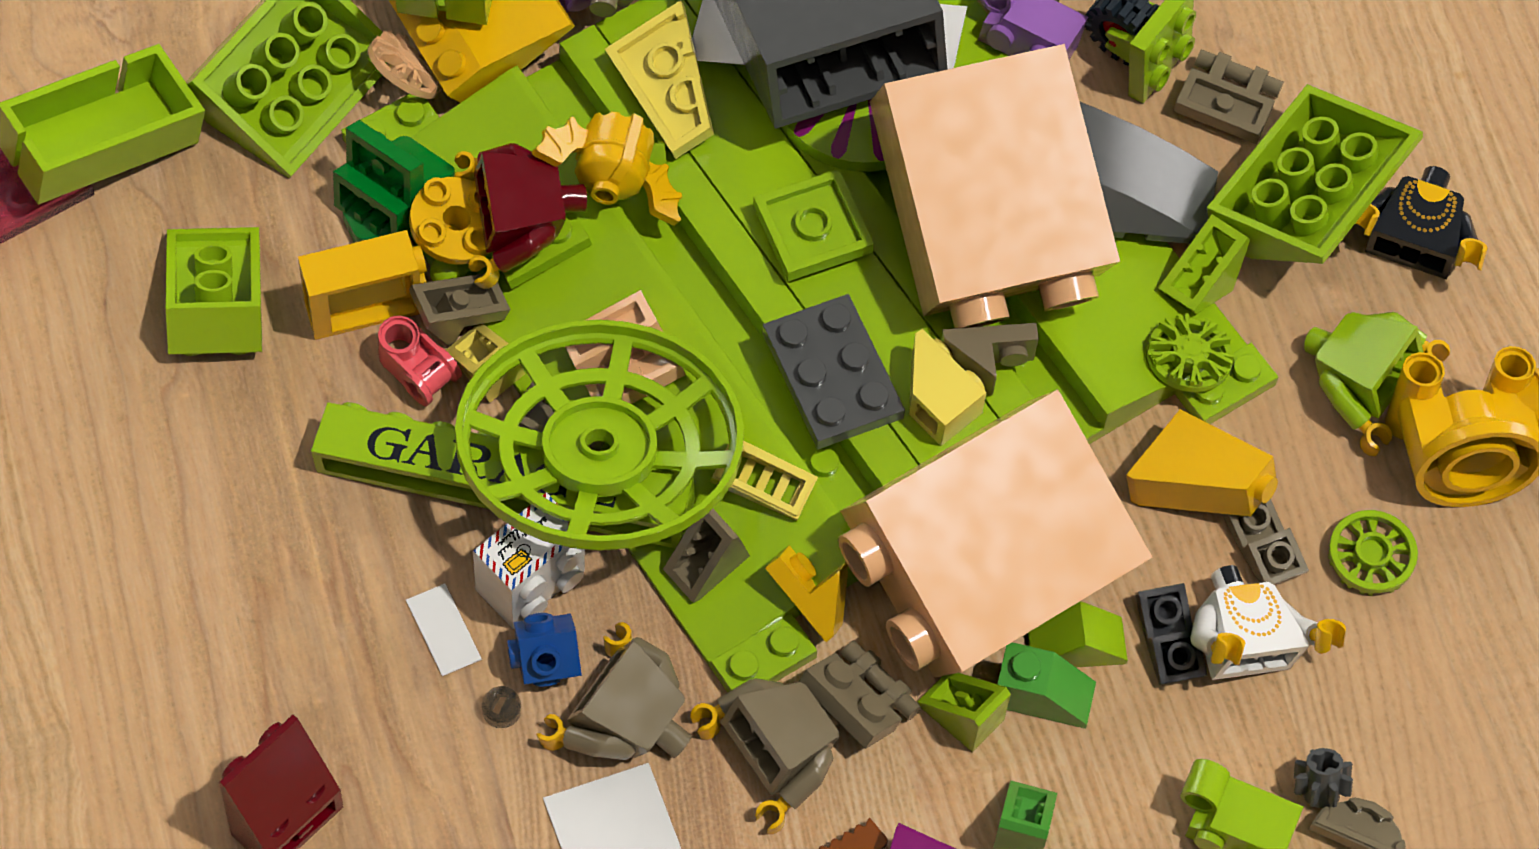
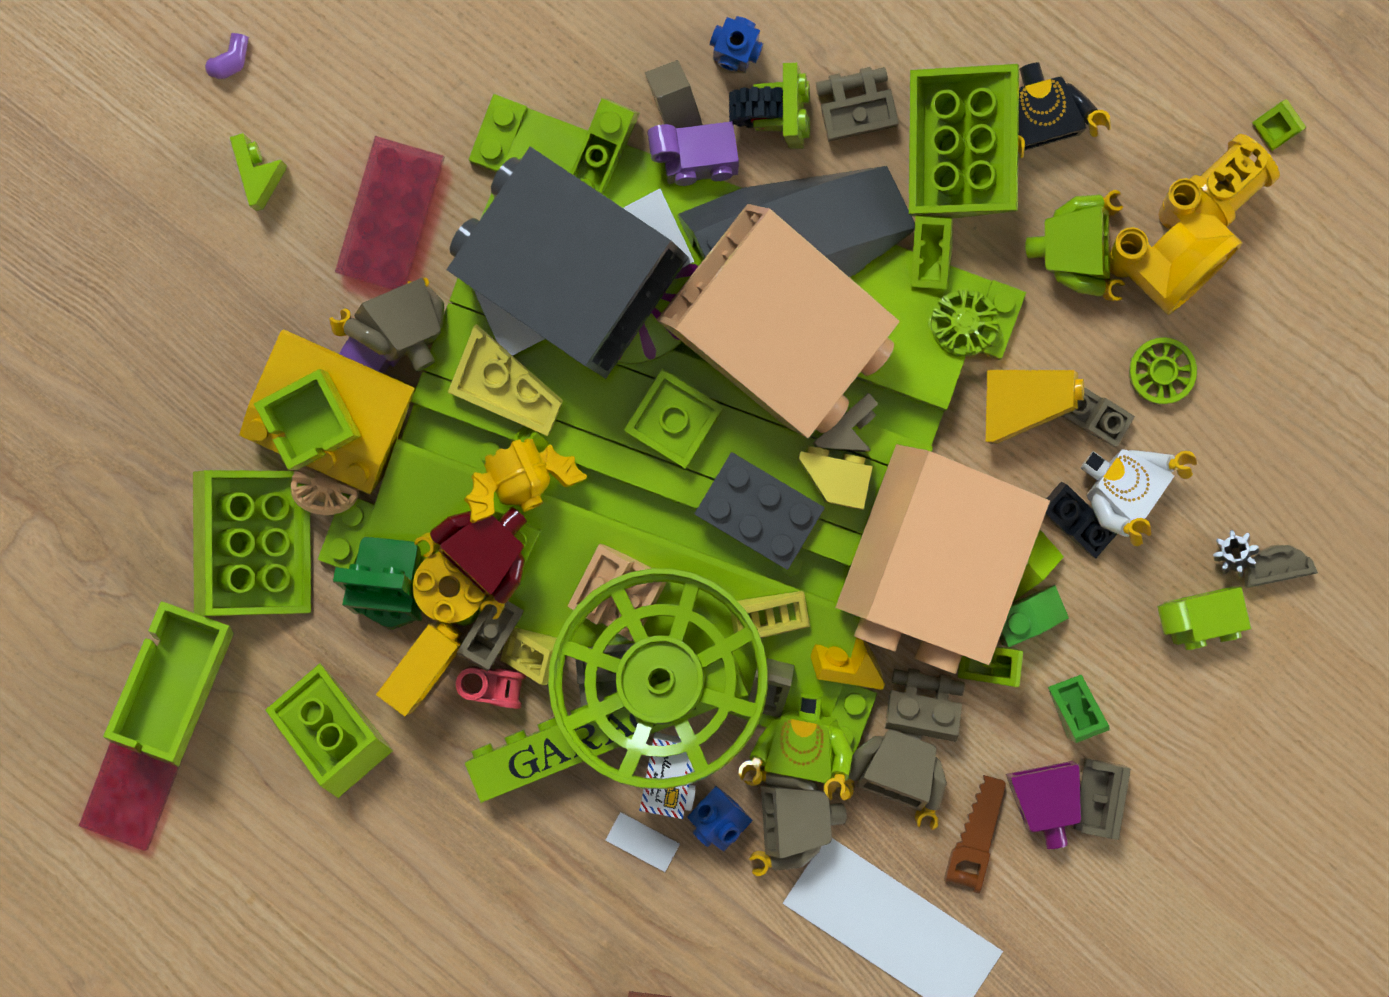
camera: 25 degrees left, 25 degrees up
(509, 712) = (724, 867): clear smoke hinge -> none
(694, 631) = (804, 747): none -> lime torso

